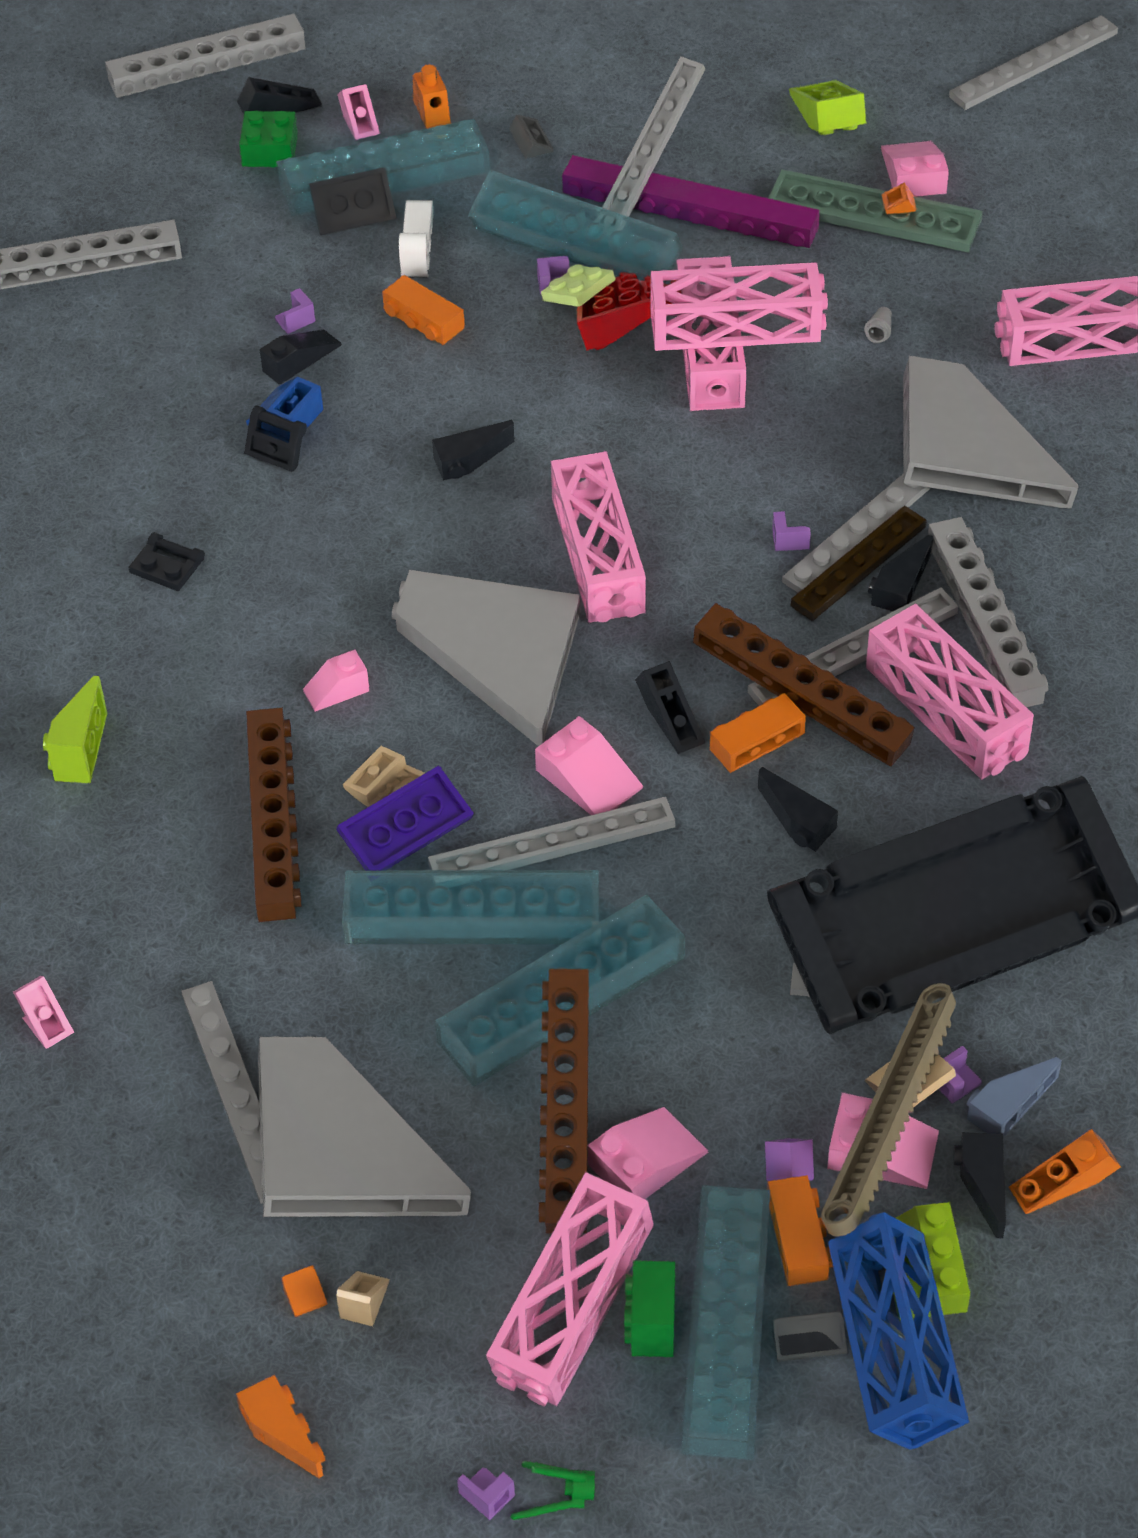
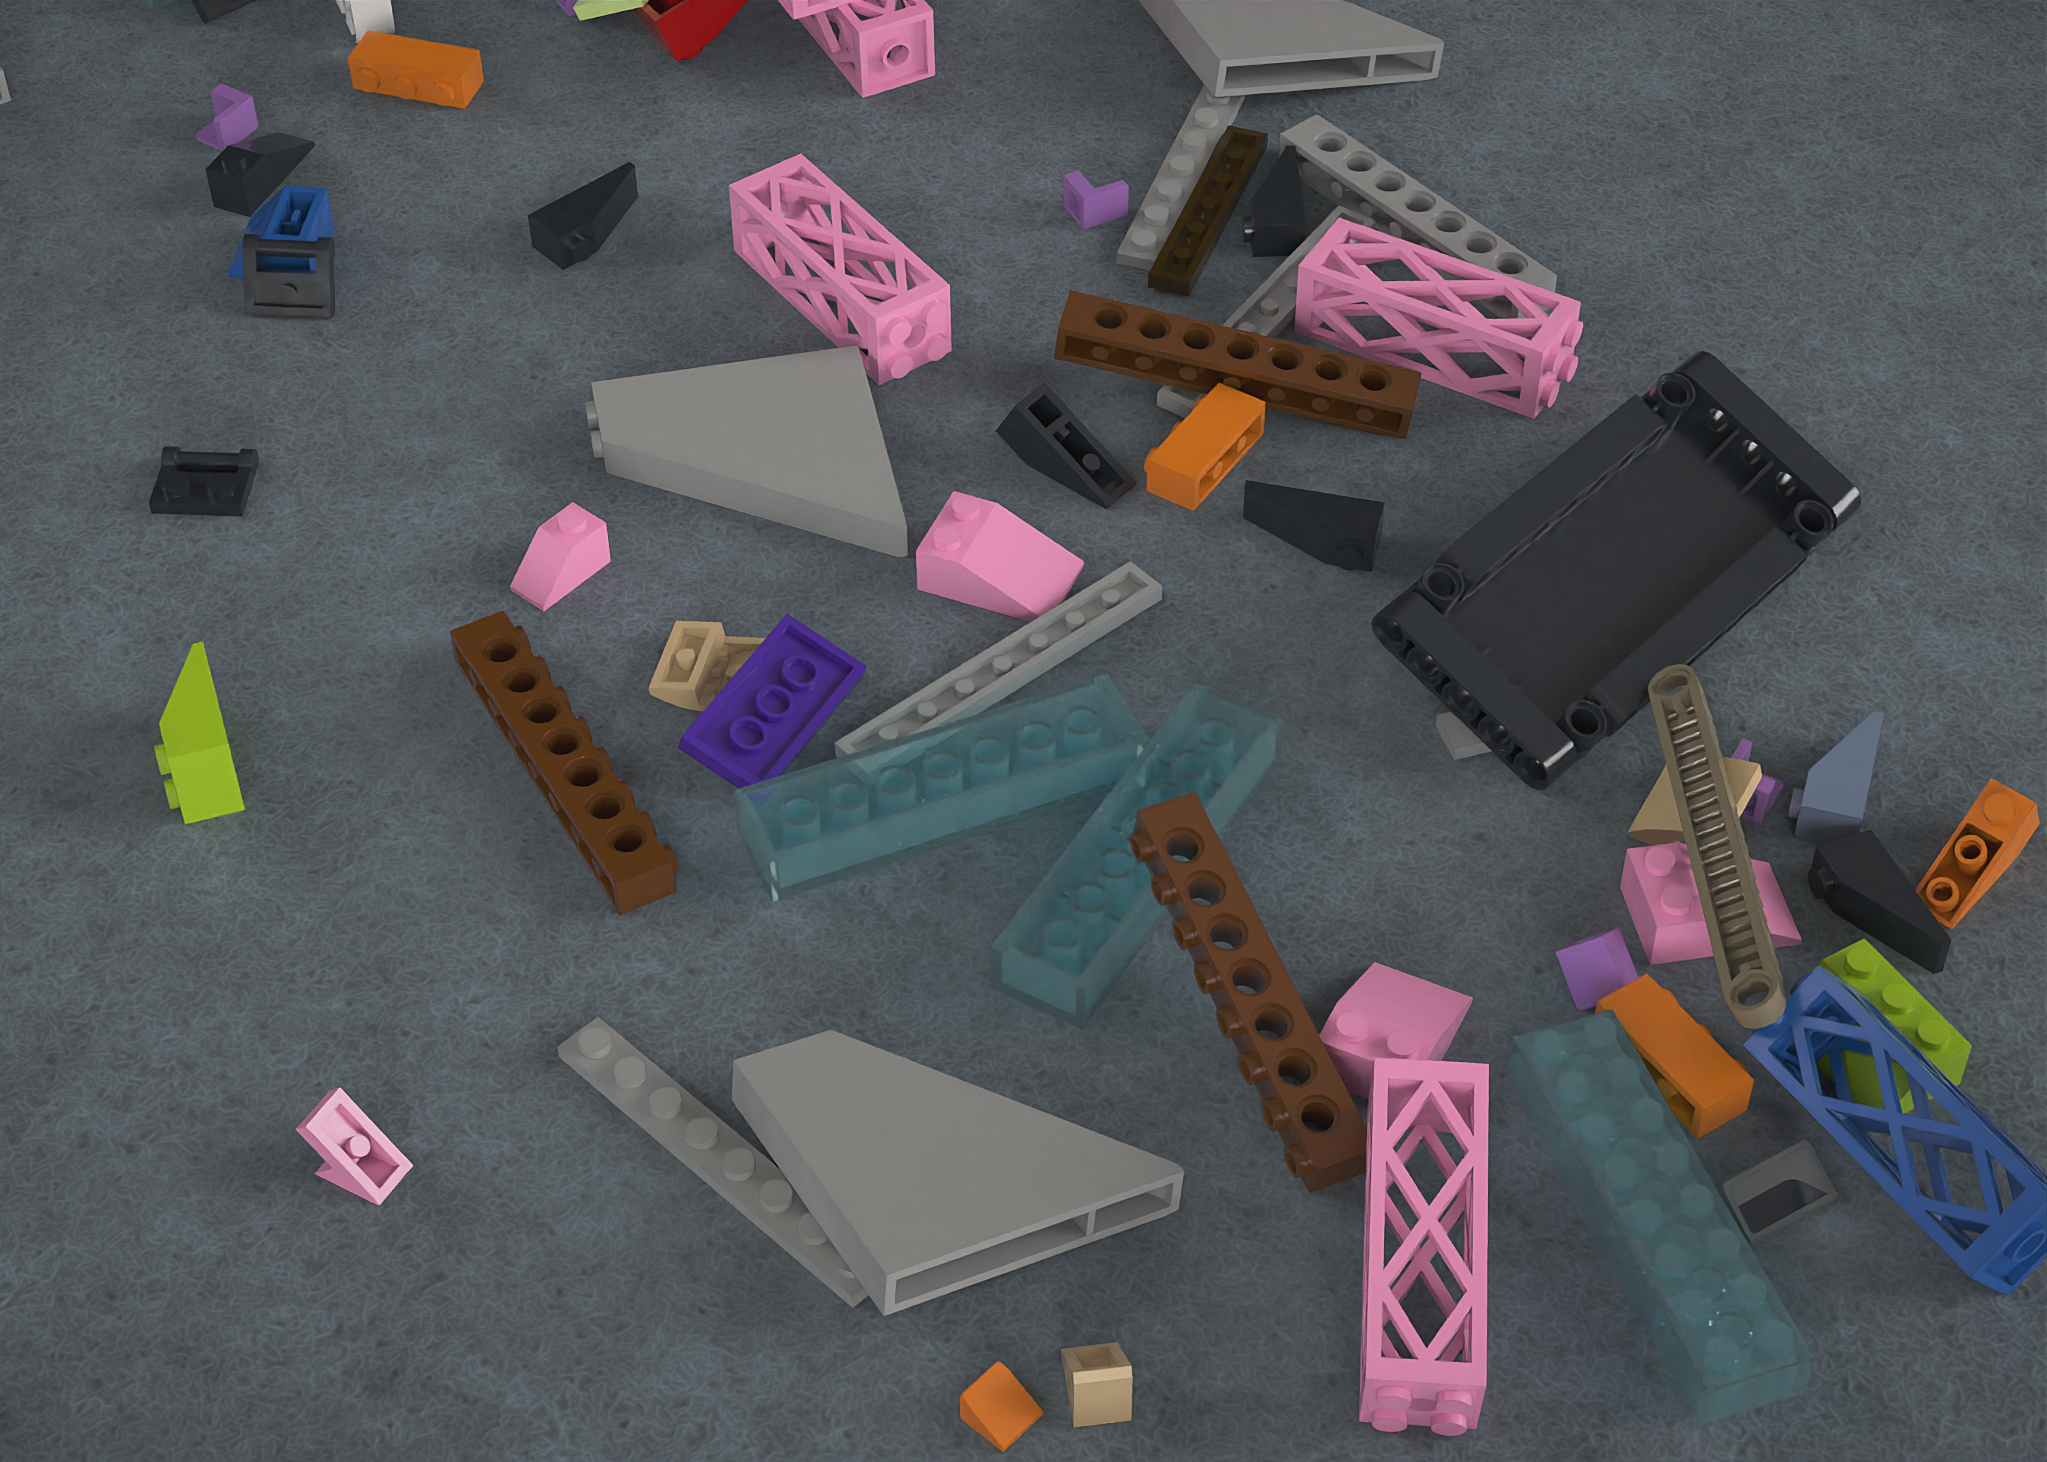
camera: 25 degrees left, 5 degrees down
(650, 1309) = (1548, 1231): green brick -> none

